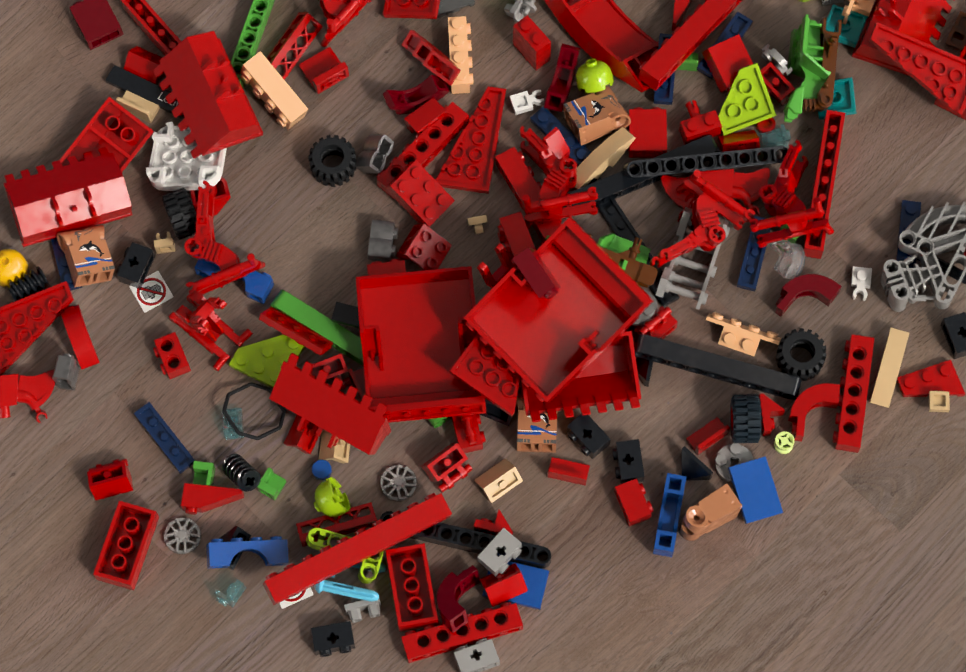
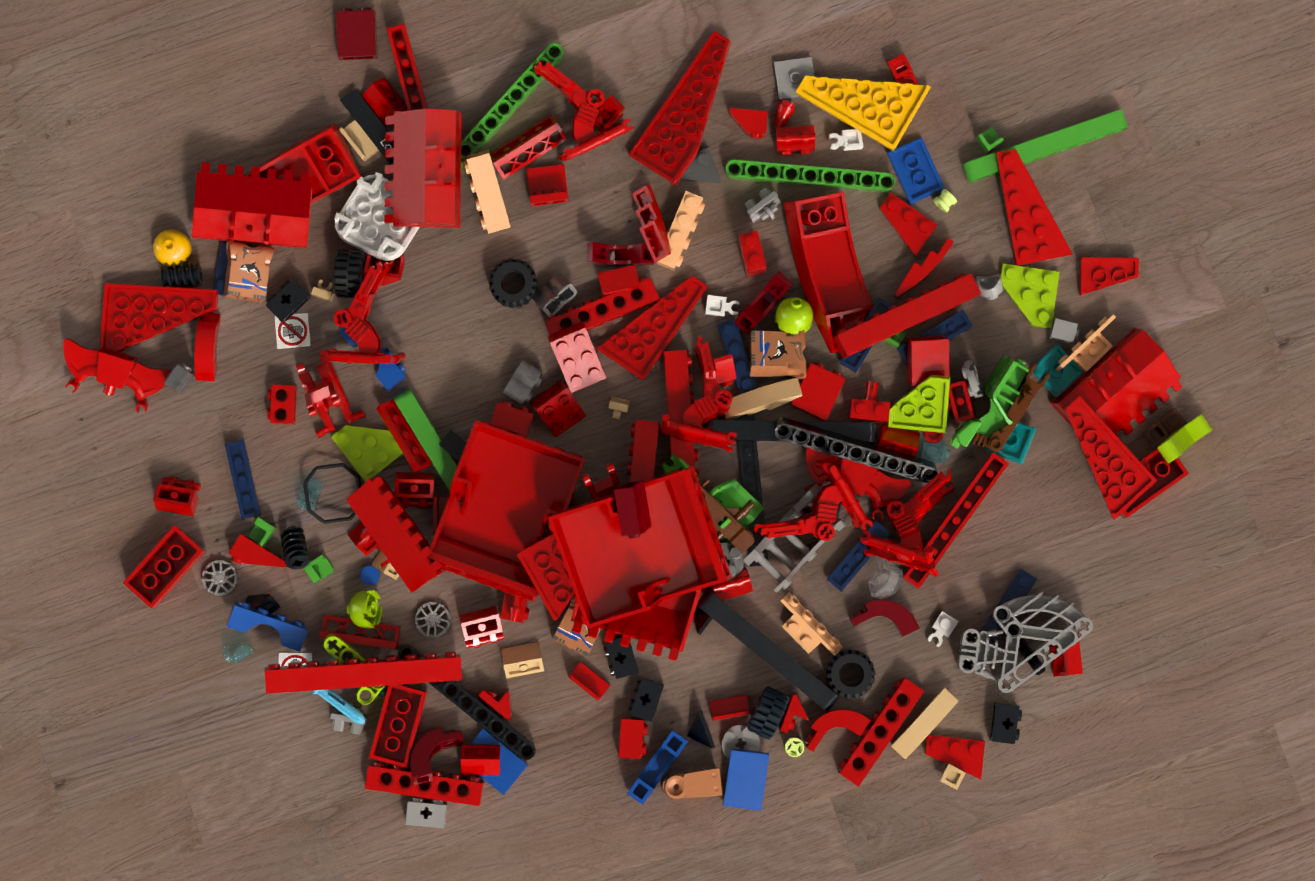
camera: 25 degrees right, 15 degrees up
(322, 638) = (301, 729): black brick -> none
(489, 556) = (477, 733): light grey brick -> none

